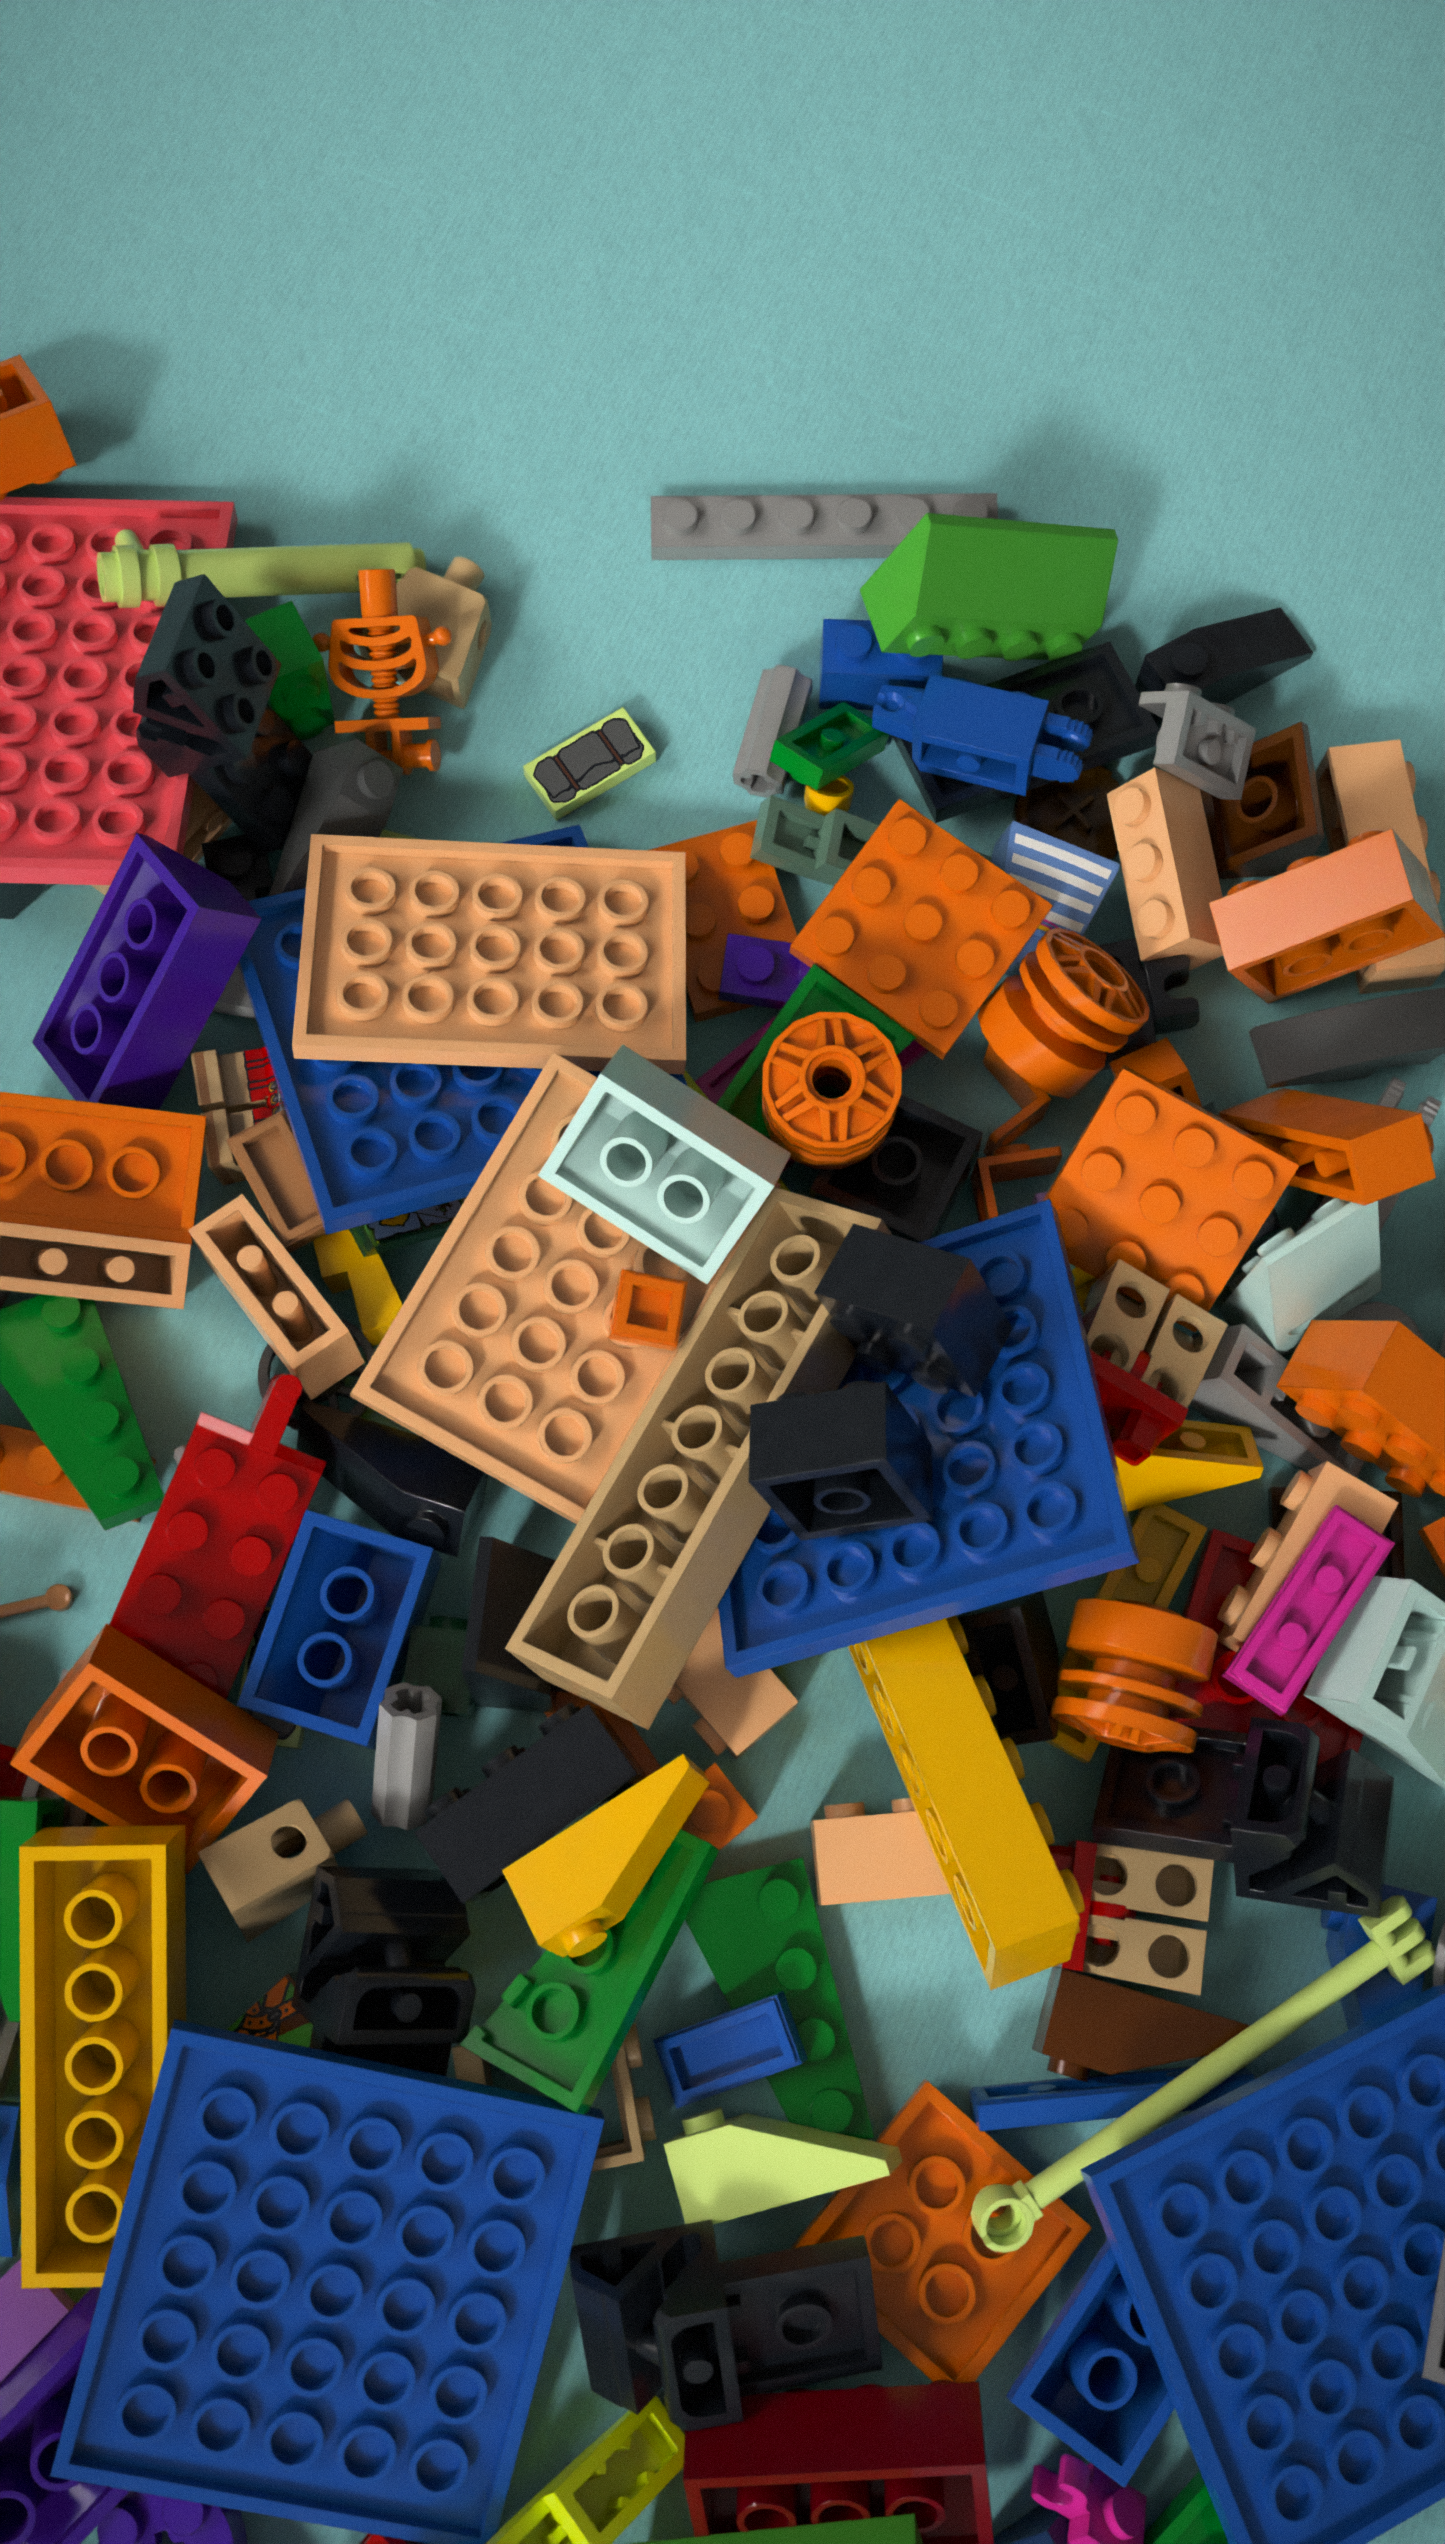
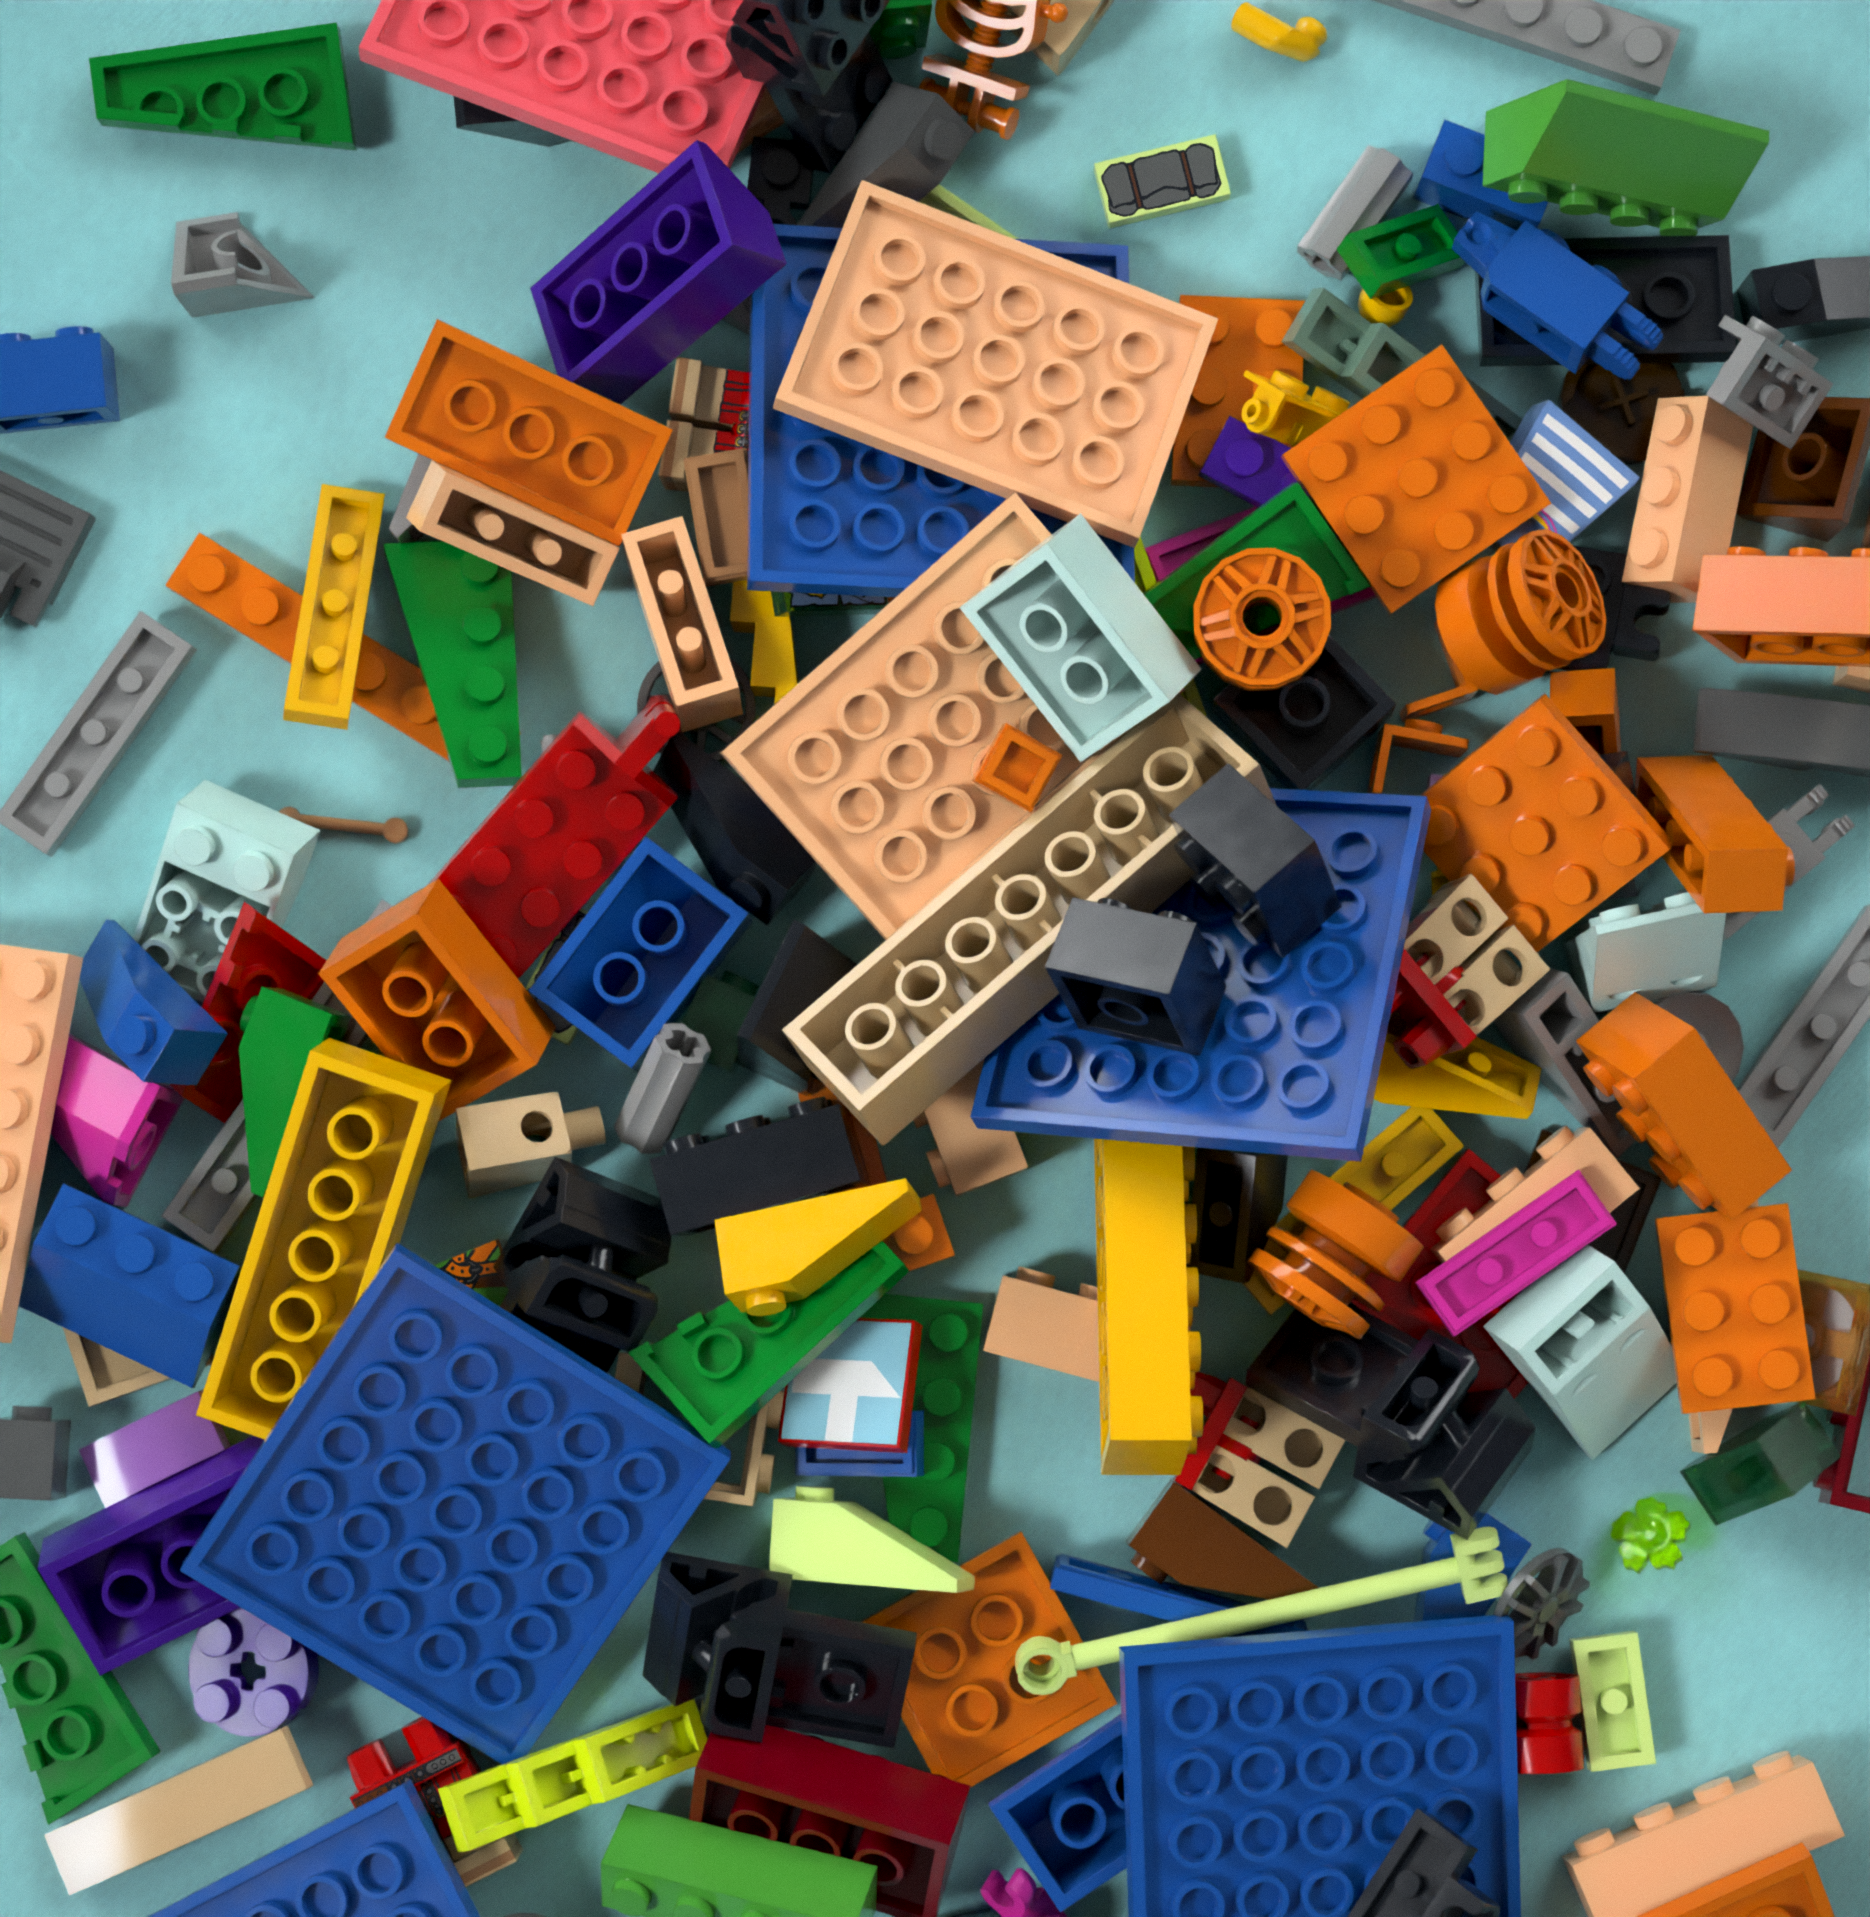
camera: 25 degrees right, 10 degrees up
(661, 609) = (1277, 36): none -> yellow arm
(708, 1996) = (856, 1390): none -> tile
(774, 909) = (1285, 410): none -> yellow hinge

